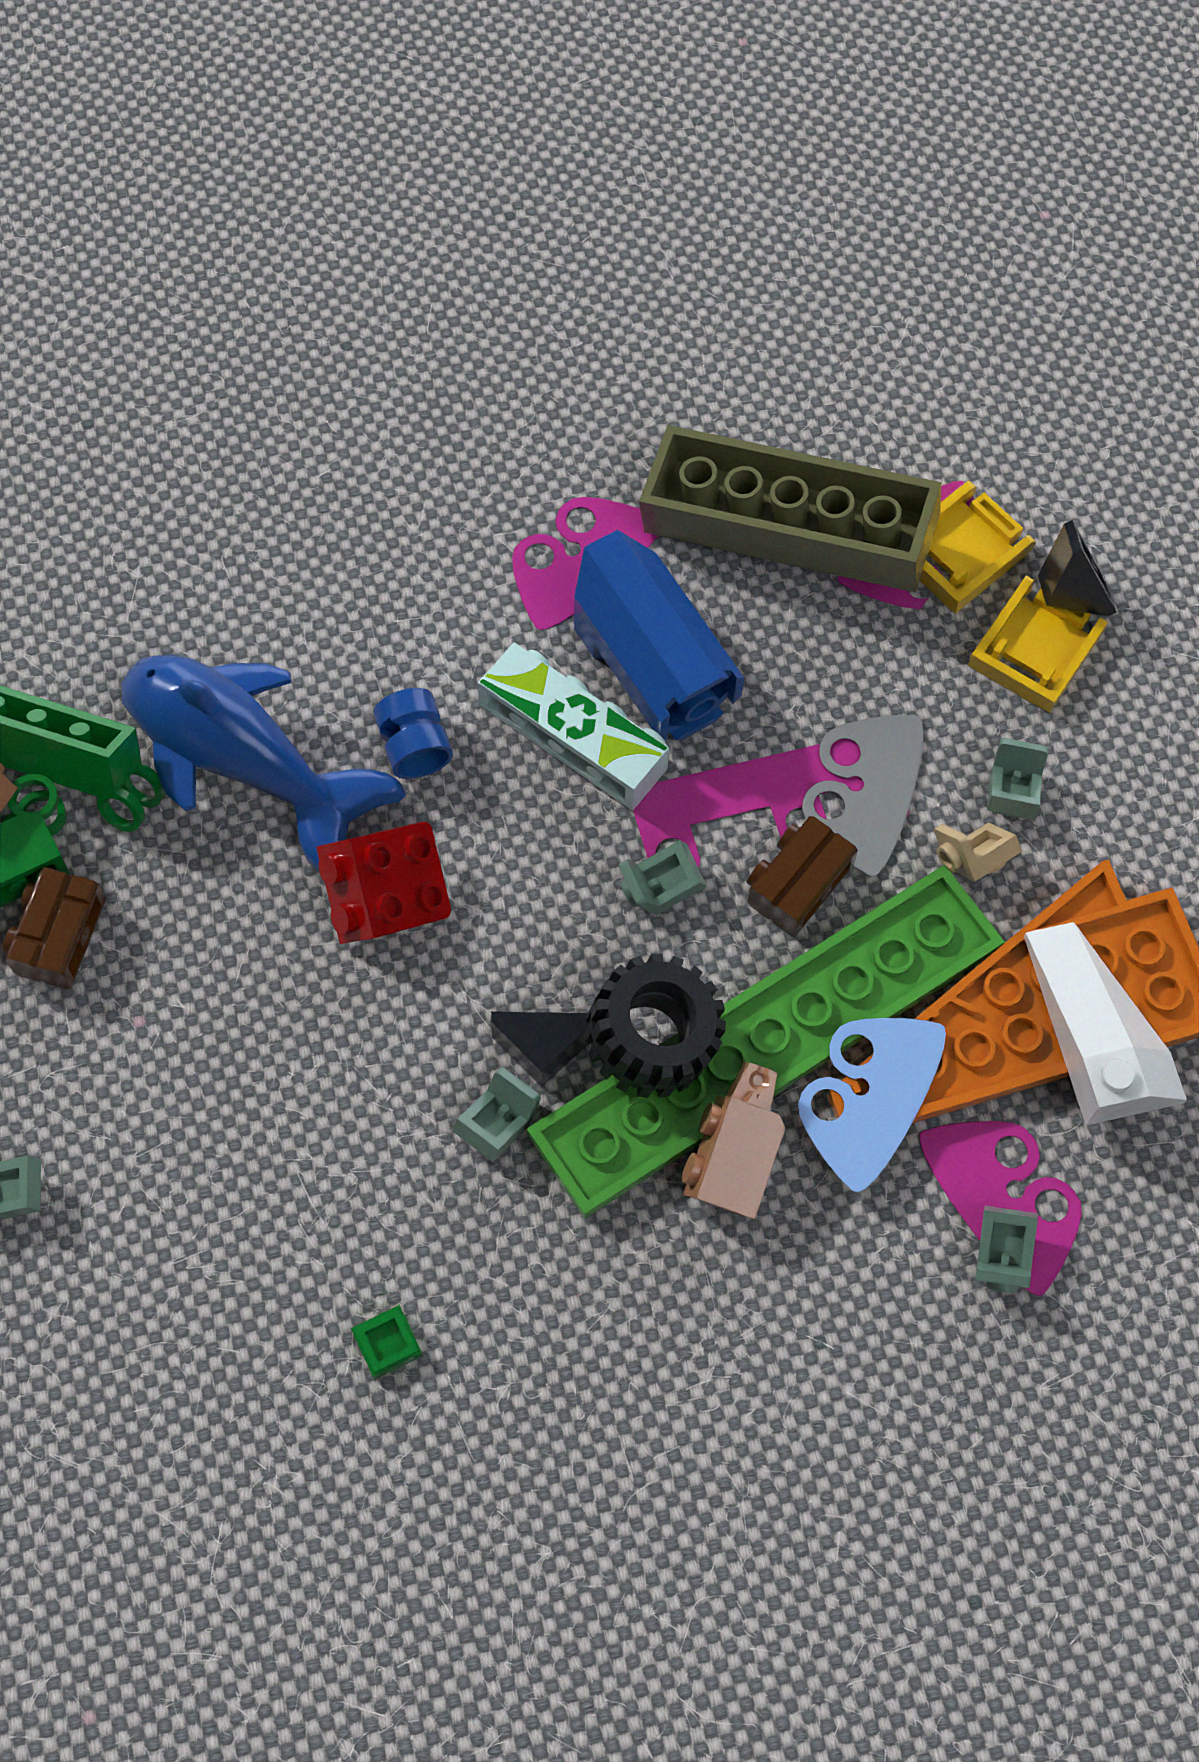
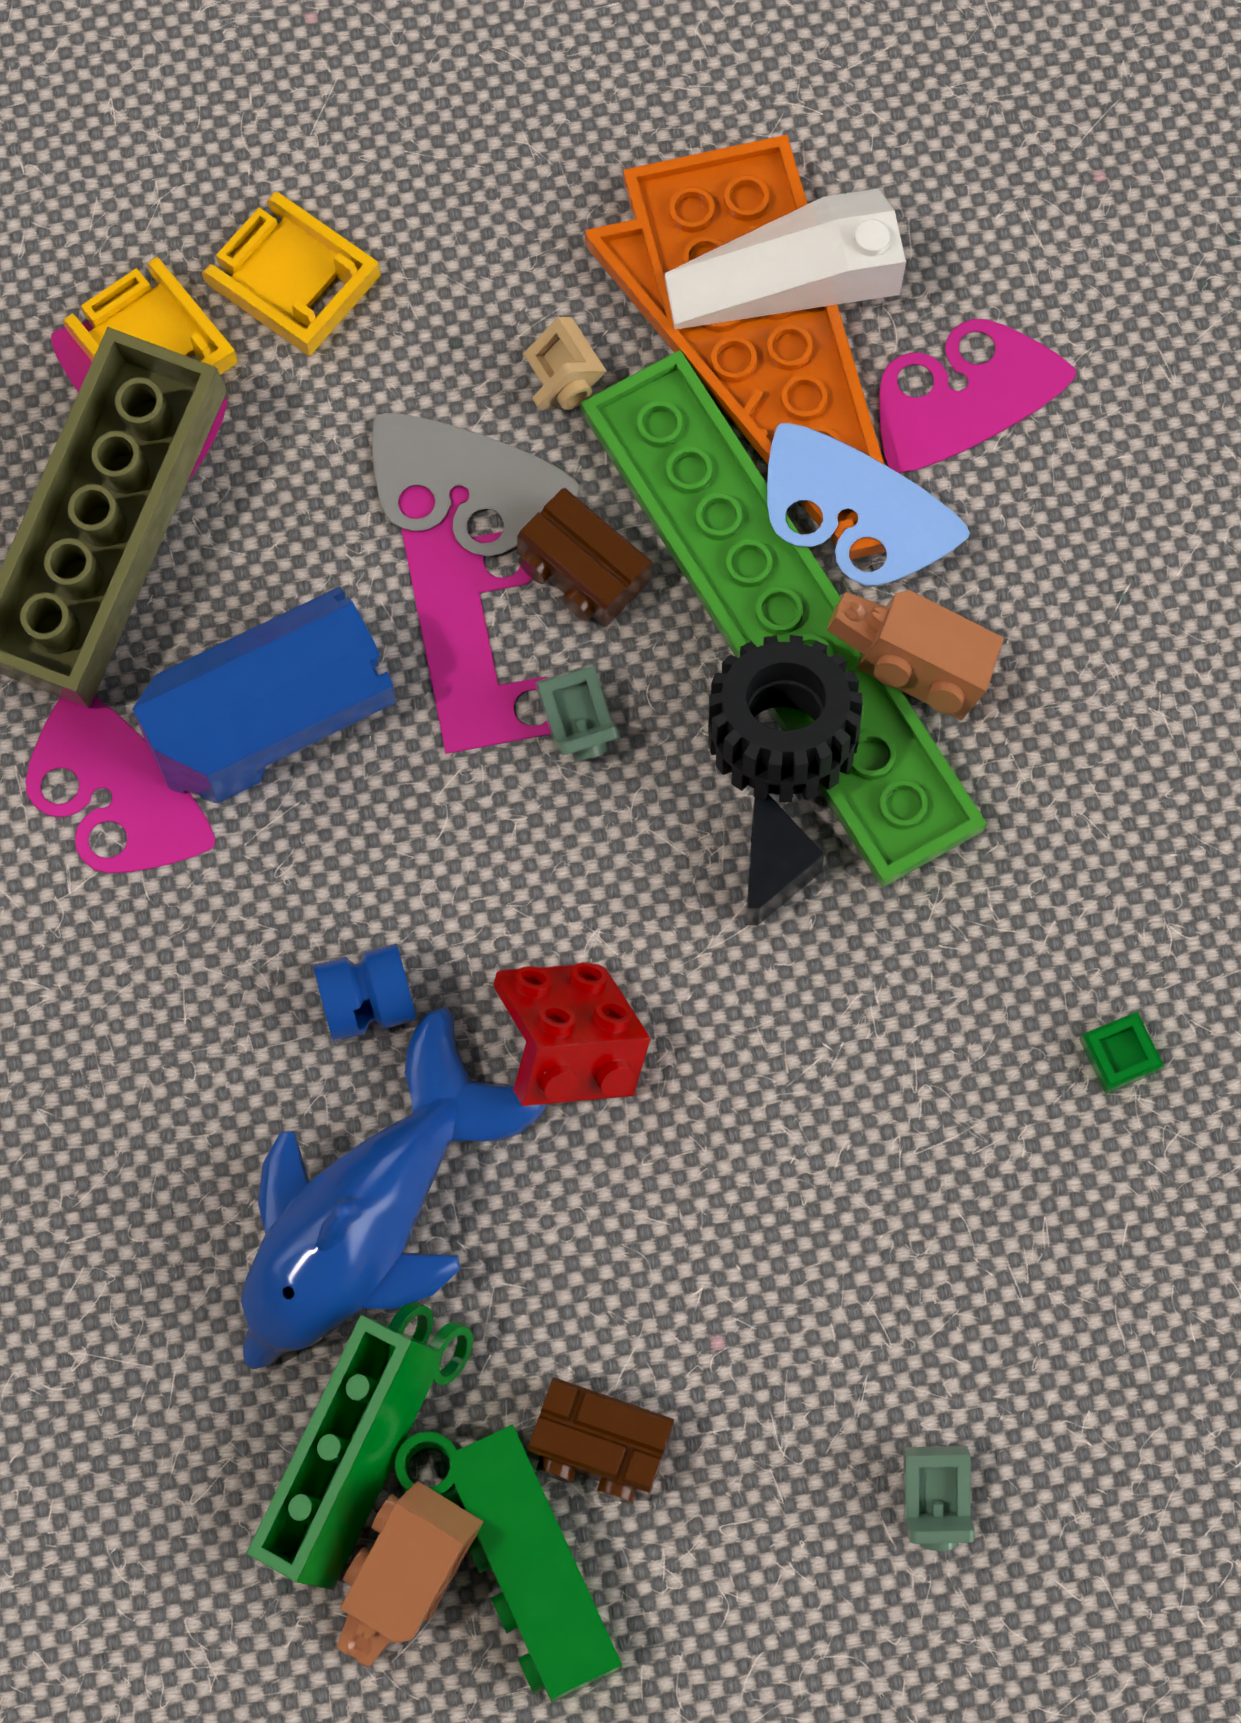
camera: 85 degrees left, 5 degrees up
(498, 1115) = (865, 913): sand green bracket -> none
(574, 725) = (365, 801): light aqua brick -> none
(1006, 1248) = (1036, 390): sand green bracket -> none
(1017, 779) = (478, 315): sand green bracket -> none
(1073, 578) = (219, 217): black slope -> none

